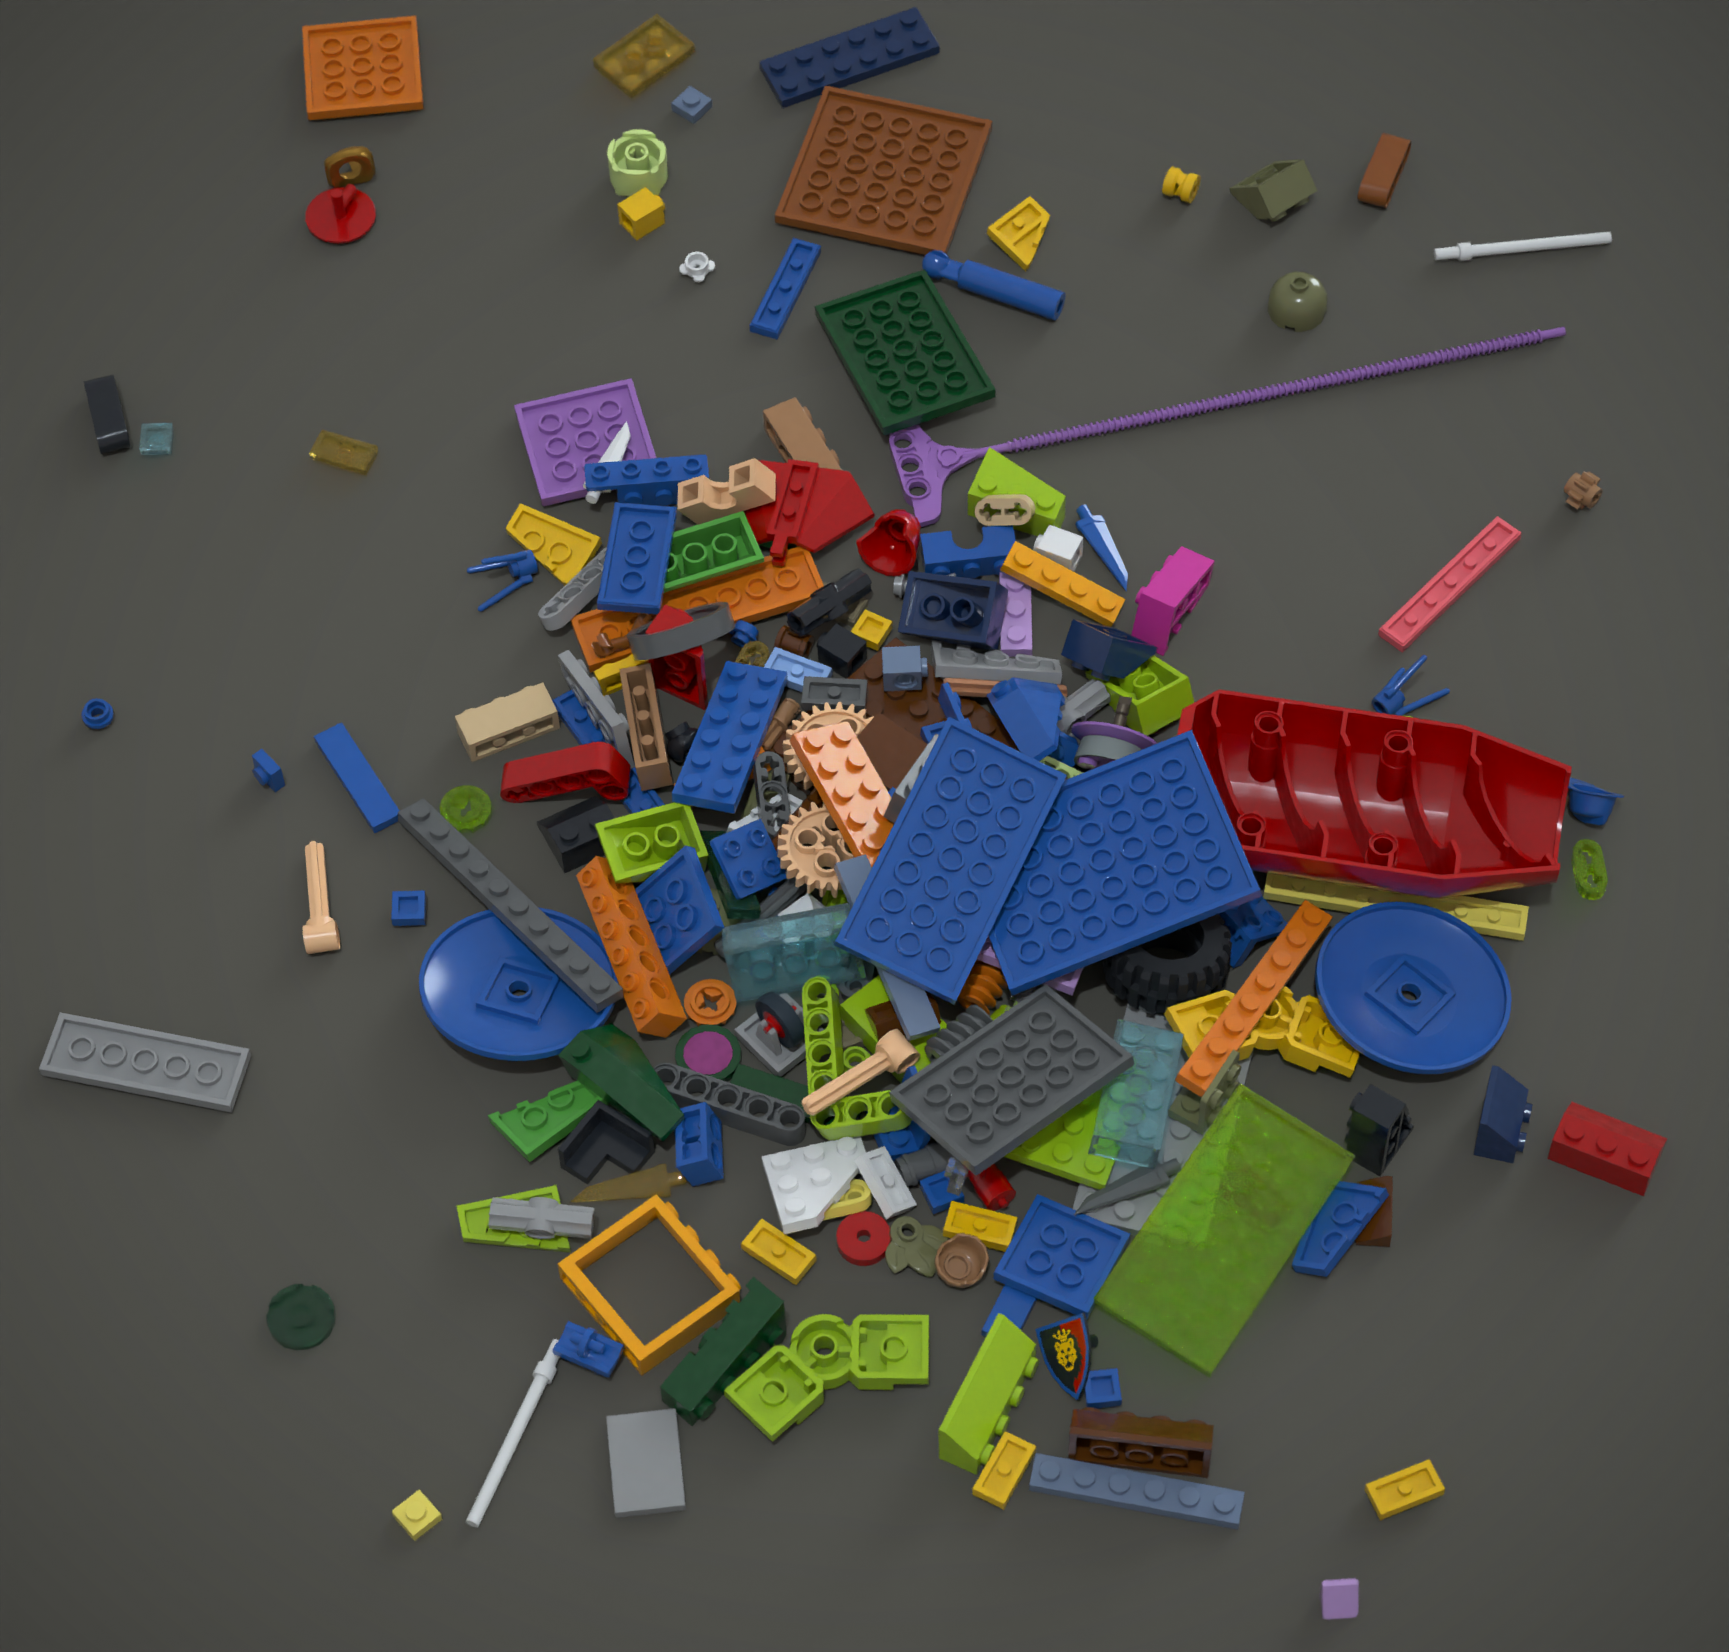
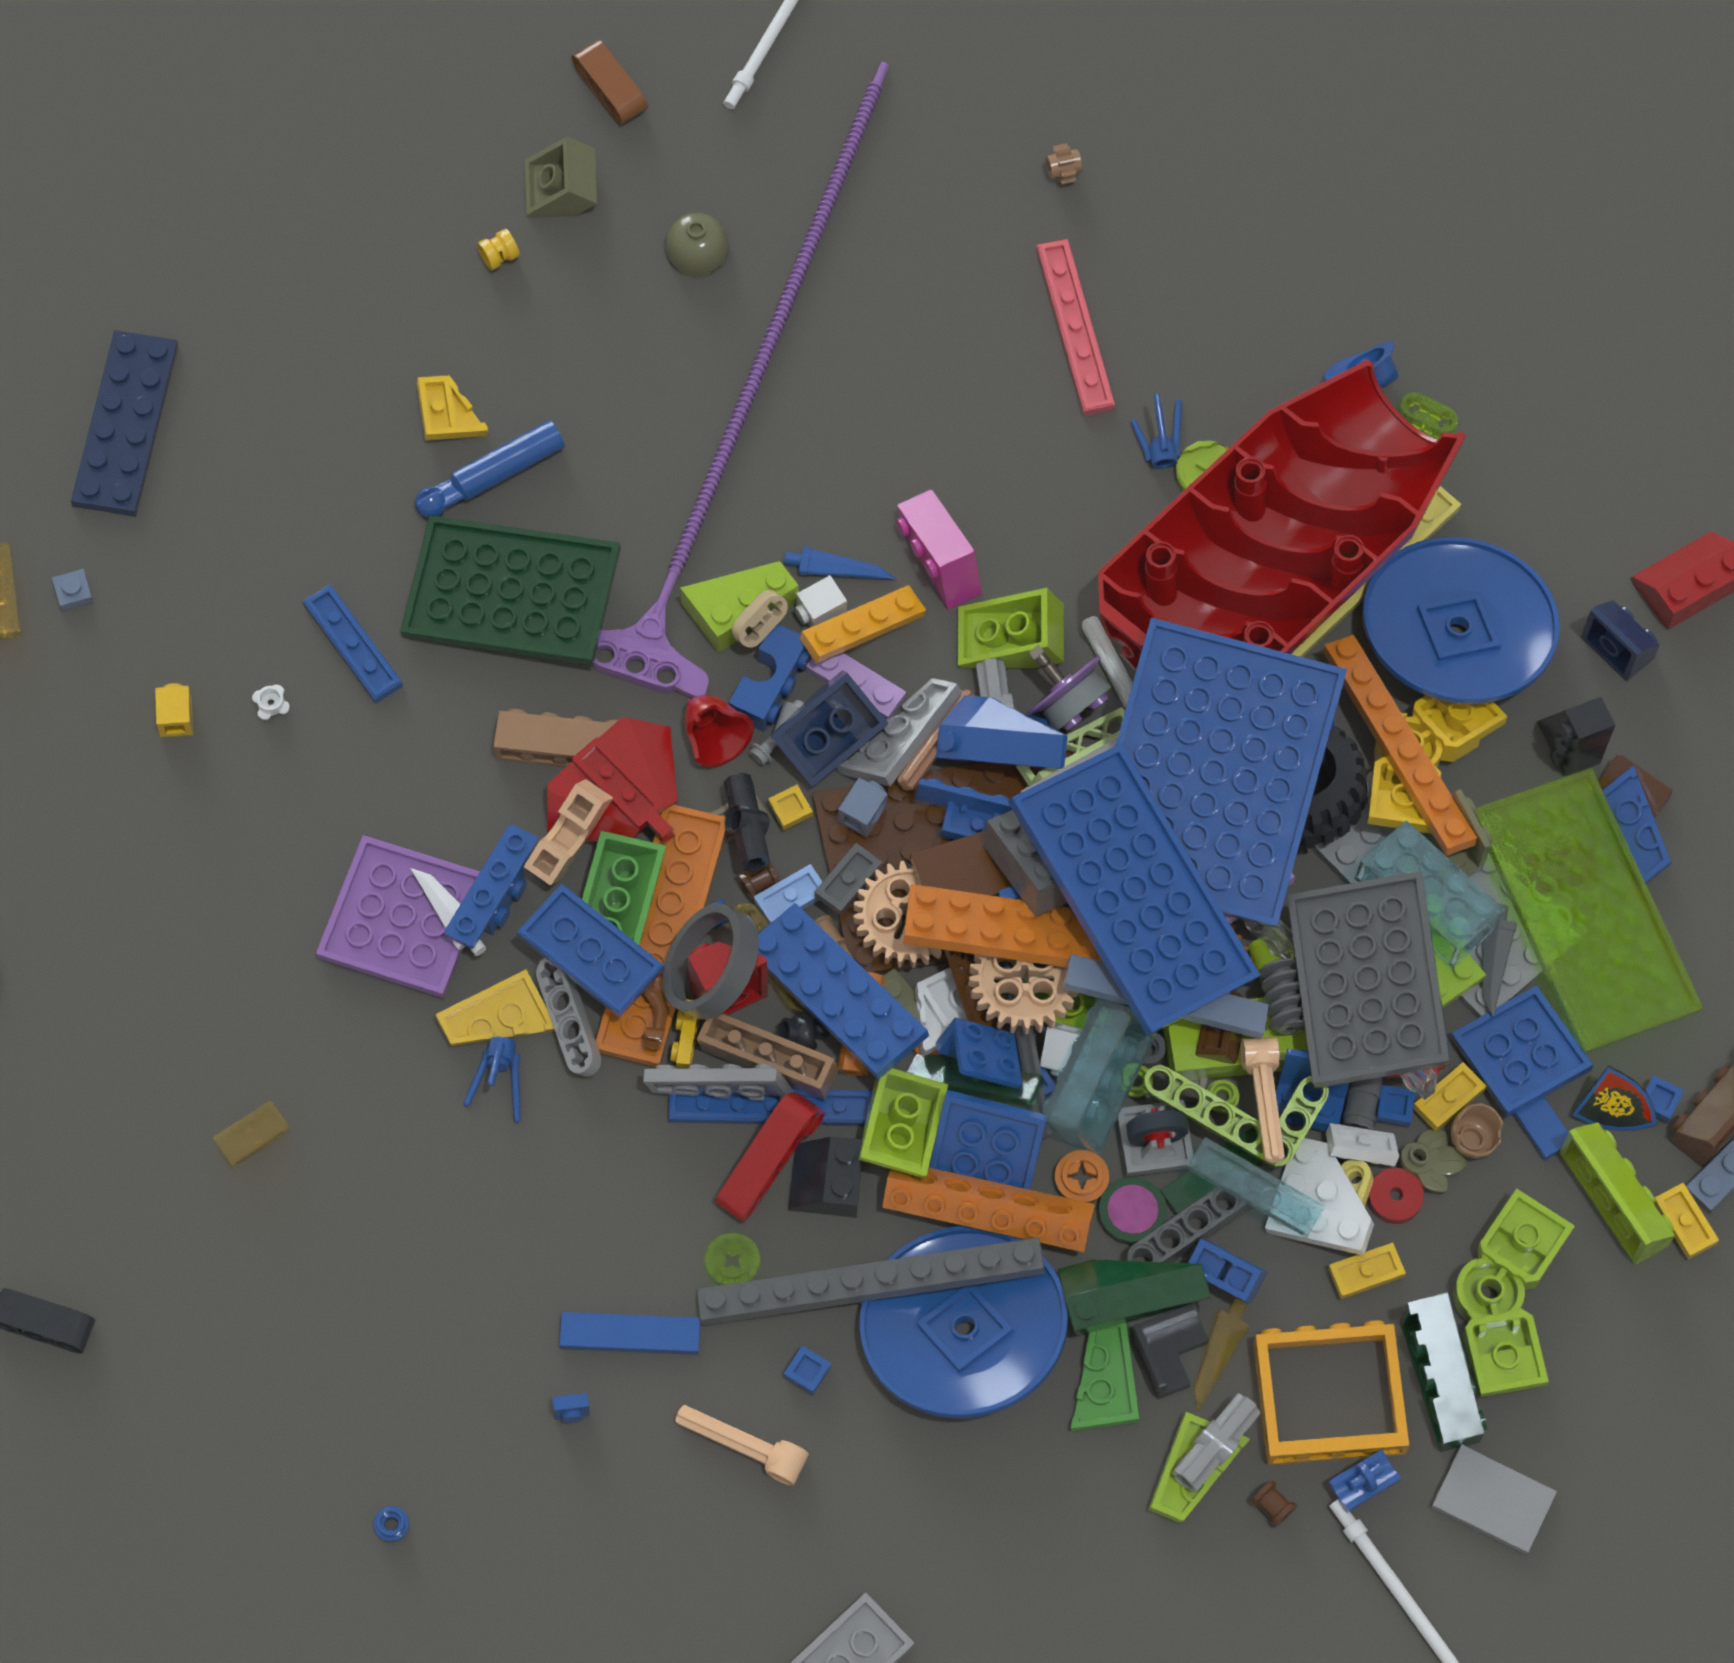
camera: 60 degrees left, 10 degrees up
(156, 438) = (106, 1292): clear light blue plate -> none
(507, 722) = (666, 1169): tan brick -> none
(524, 1296) = (1273, 1503): none -> reddish brown bush
(637, 162) = (117, 678): yellowish green brick -> none
(777, 784) = (920, 982): dark grey beam -> none
(780, 1117) = (1256, 1187): none -> clear light blue plate
(841, 650) = (796, 845): black brick -> none
(884, 171) = (287, 478): dark orange plate -> none
(1105, 650) = (959, 633): dark blue slope -> none

